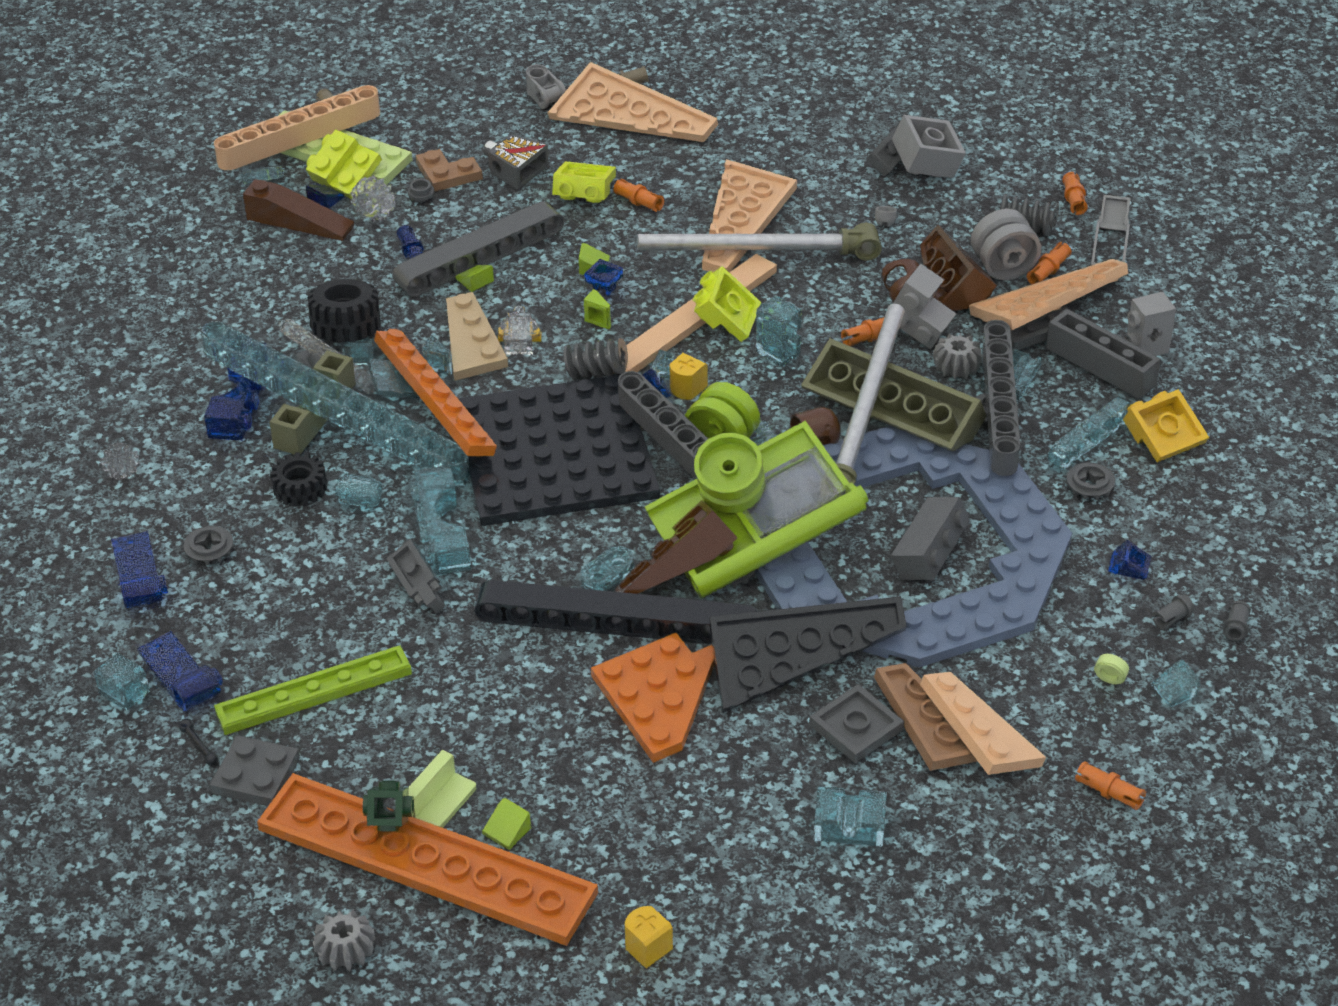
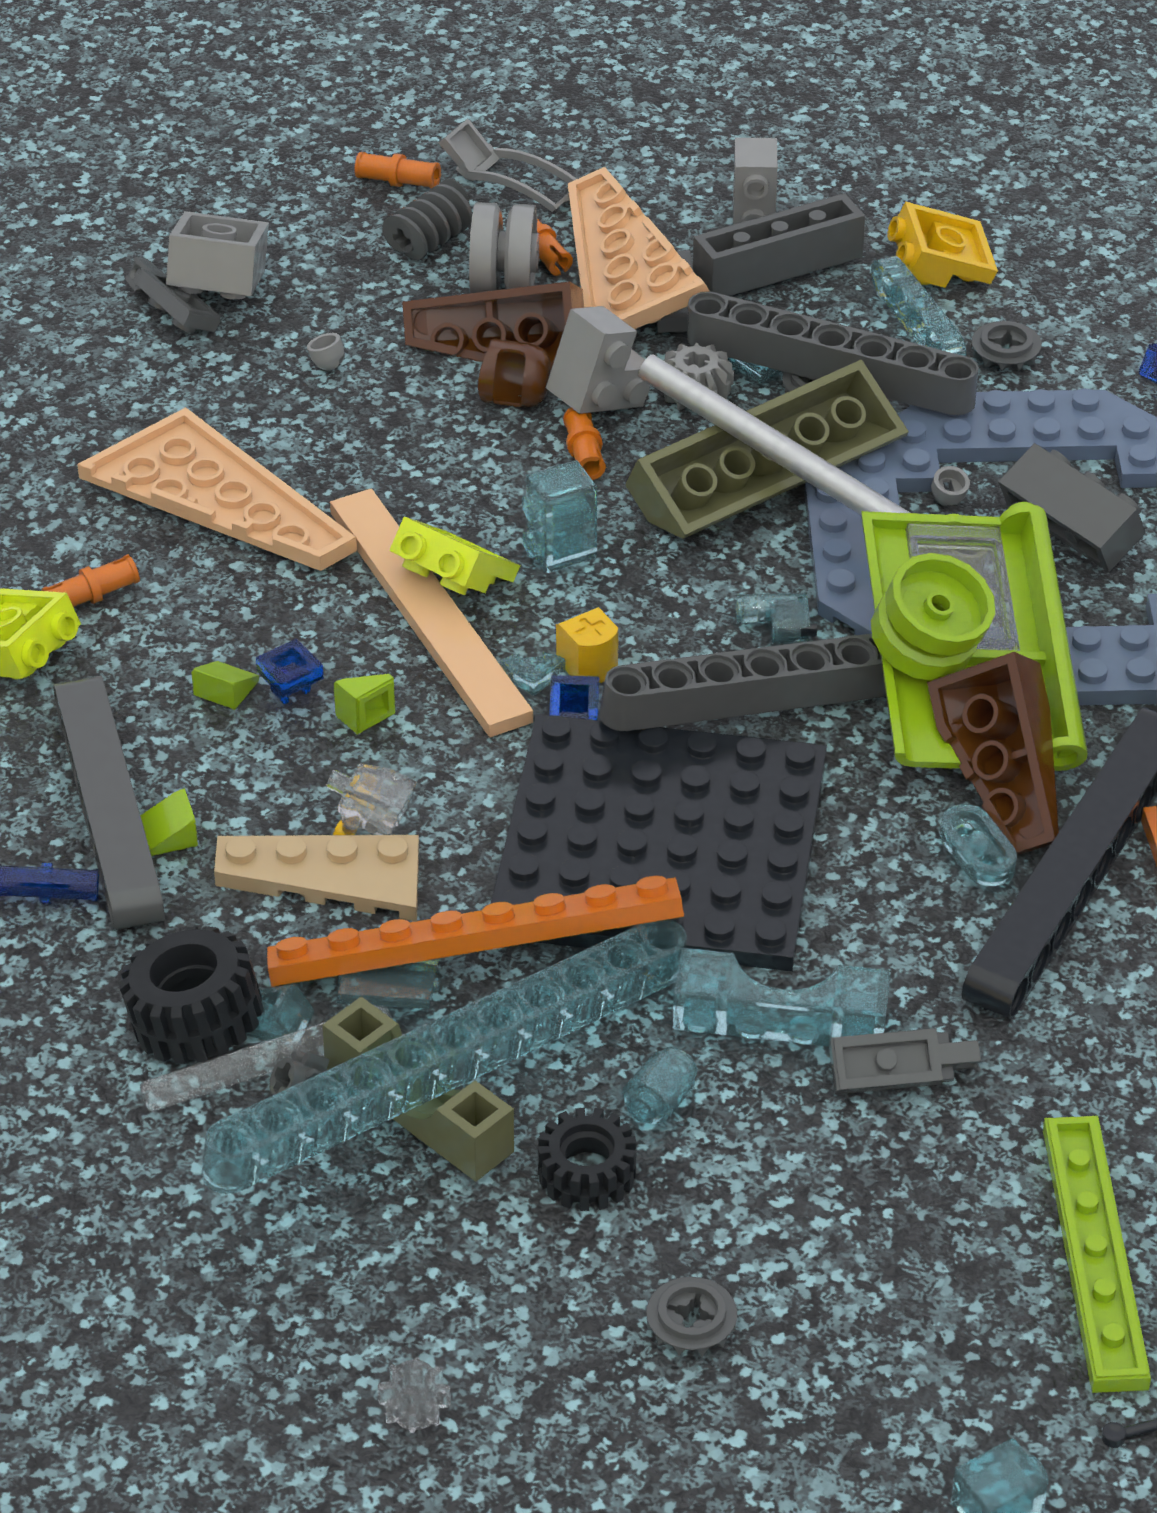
camera: 70 degrees left, 0 degrees up
(137, 570) = (756, 1433): clear blue door -> none
(179, 672) = (1033, 1407): clear blue door -> none
(232, 412) = (371, 1211): clear blue arch -> none
(437, 356) = (367, 907): clear light blue slope -> none
(596, 361) = (503, 725): dark grey piece -> none
(724, 410) = (736, 612): lime wheel -> none
(822, 422) = (789, 540): reddish brown helmet -> none
(860, 240) = (374, 394): flat silver piece -> none
(922, 484) = (958, 485): none -> light grey hinge

